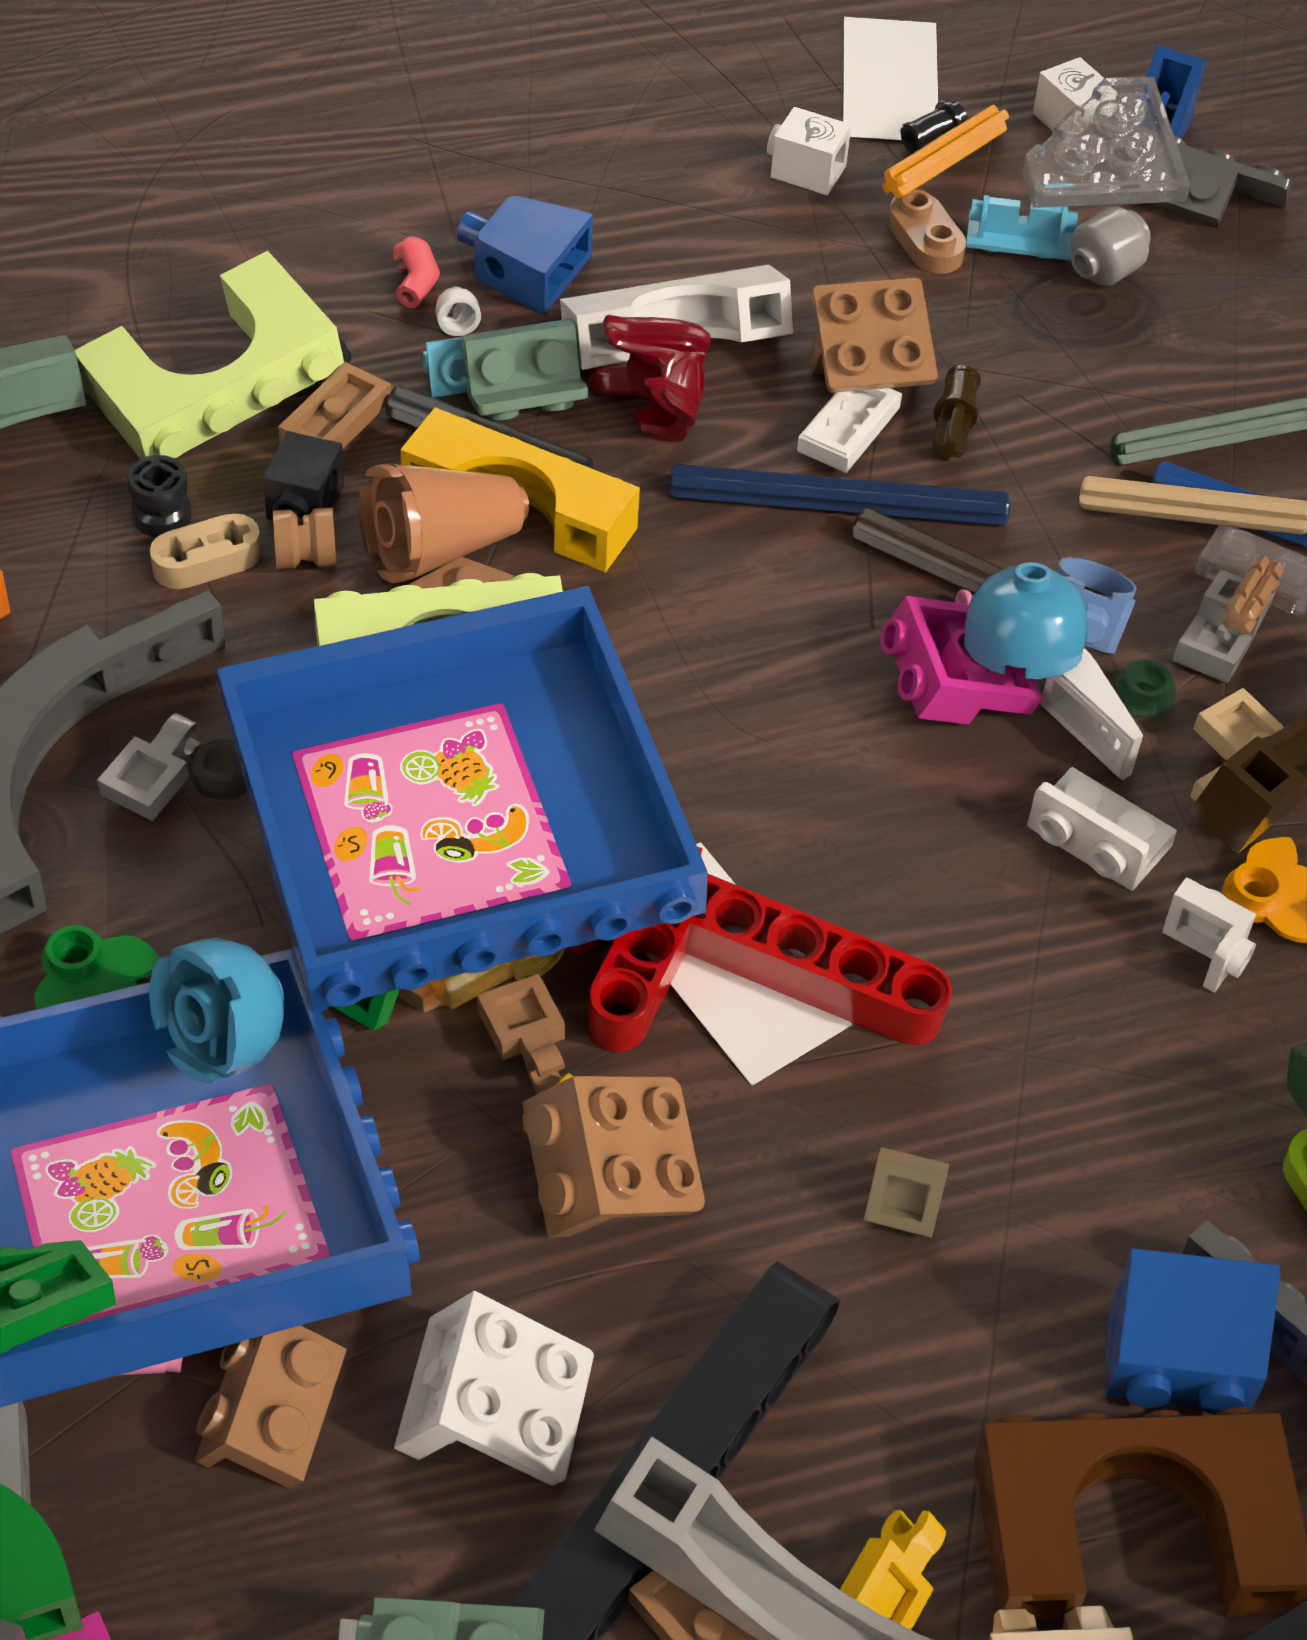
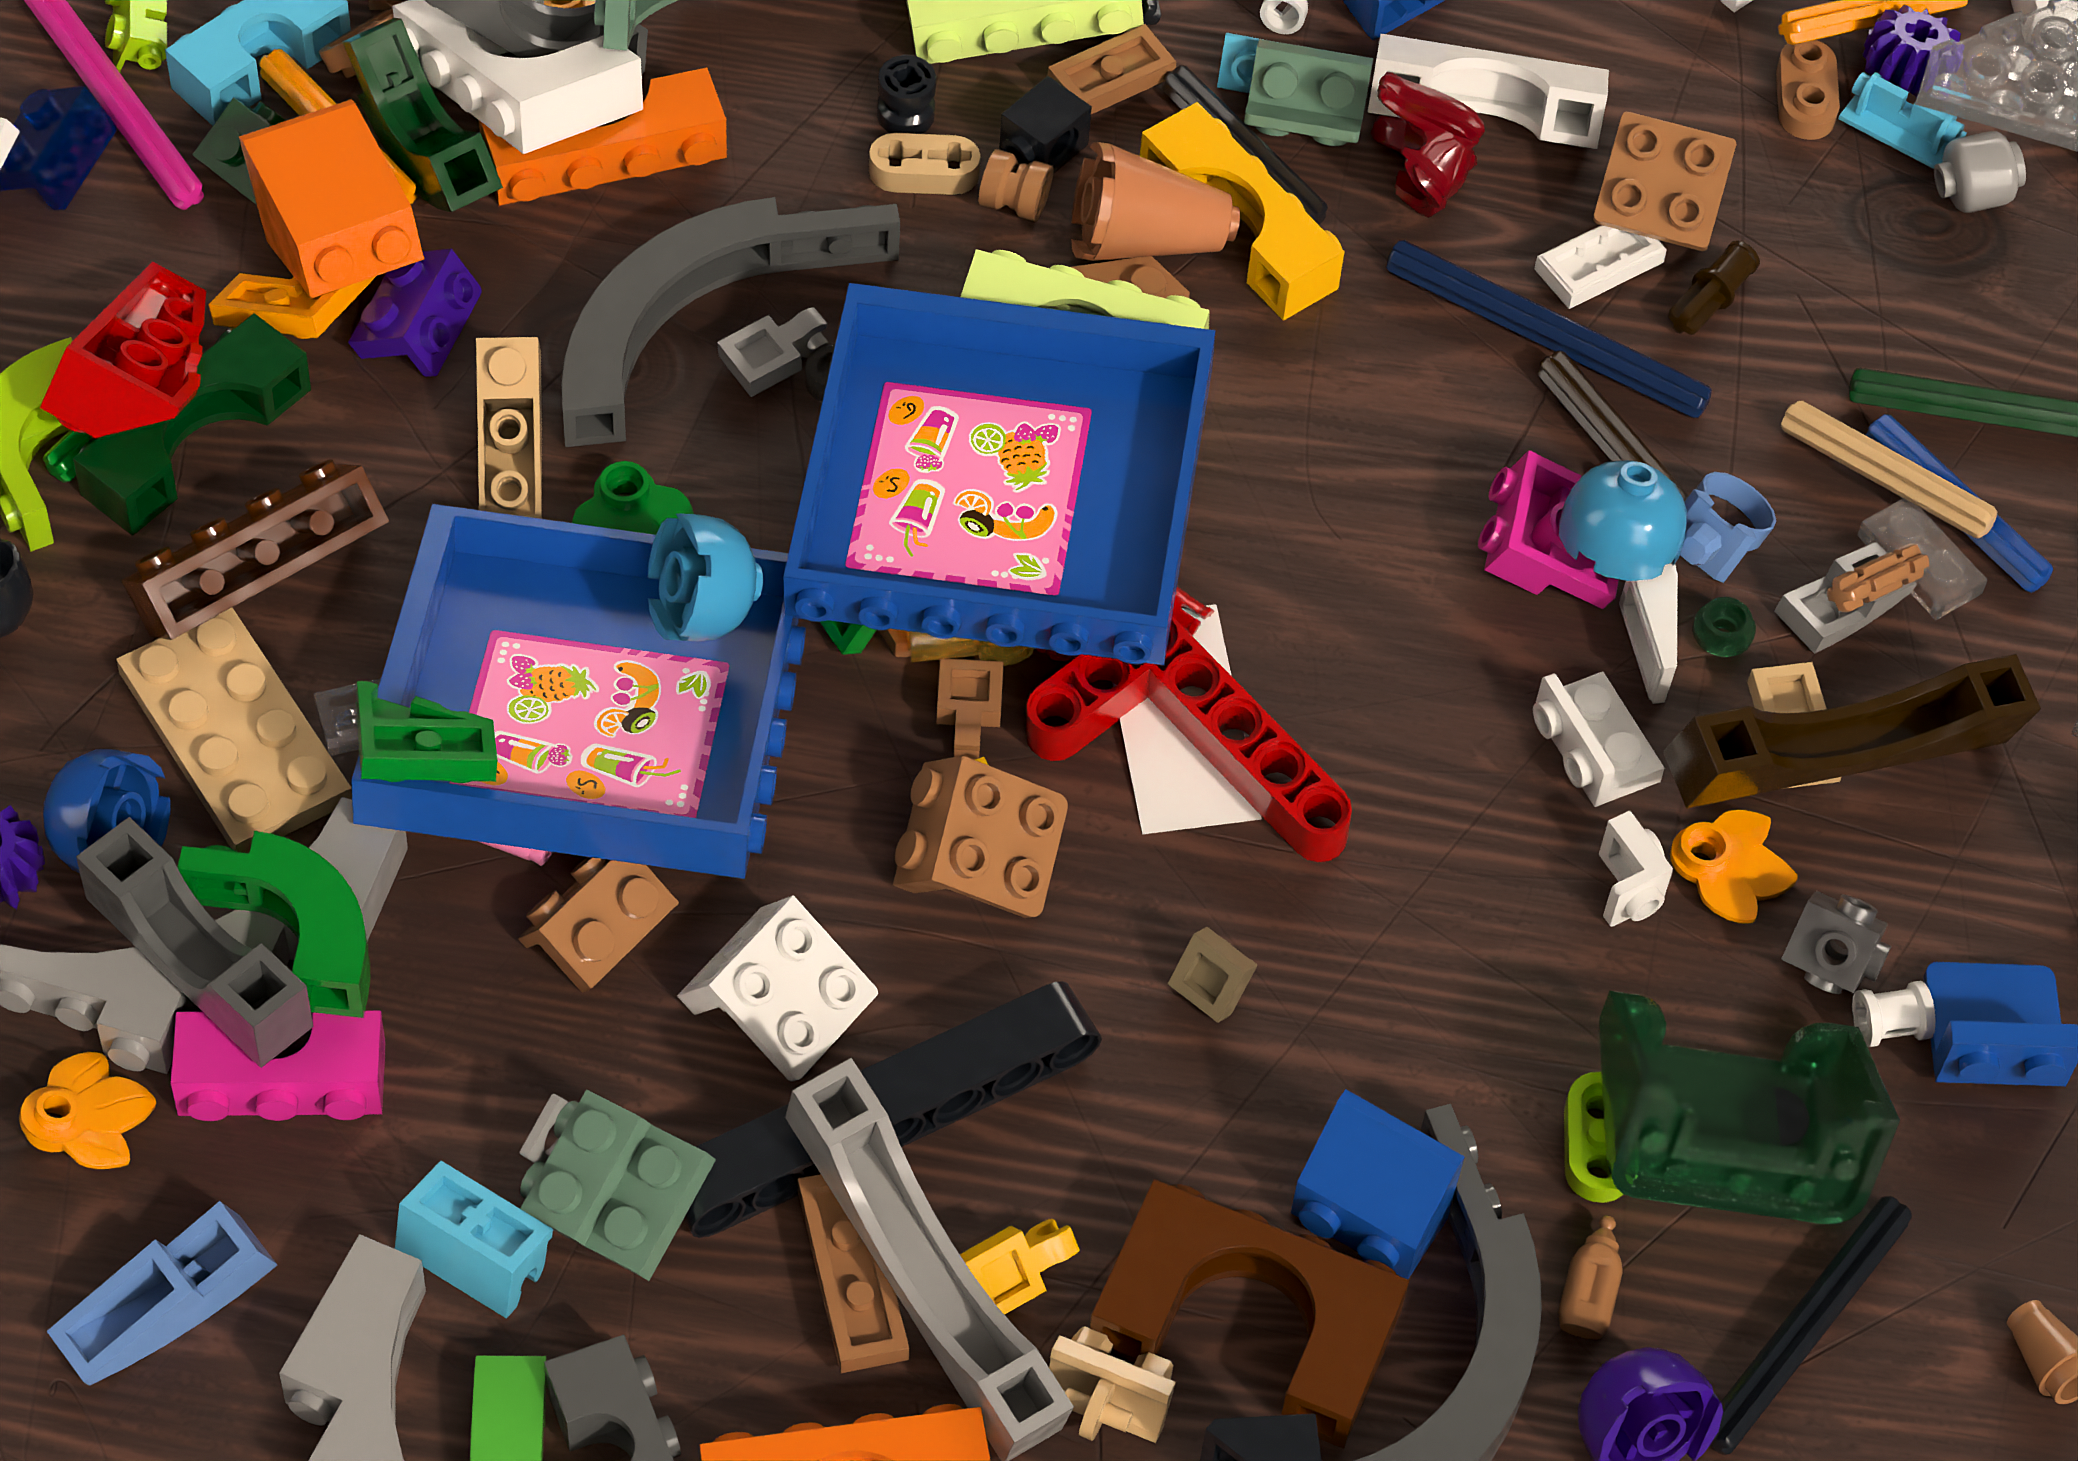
camera: 25 degrees right, 5 degrees up
(991, 168) = (1902, 45): none -> dark purple gear

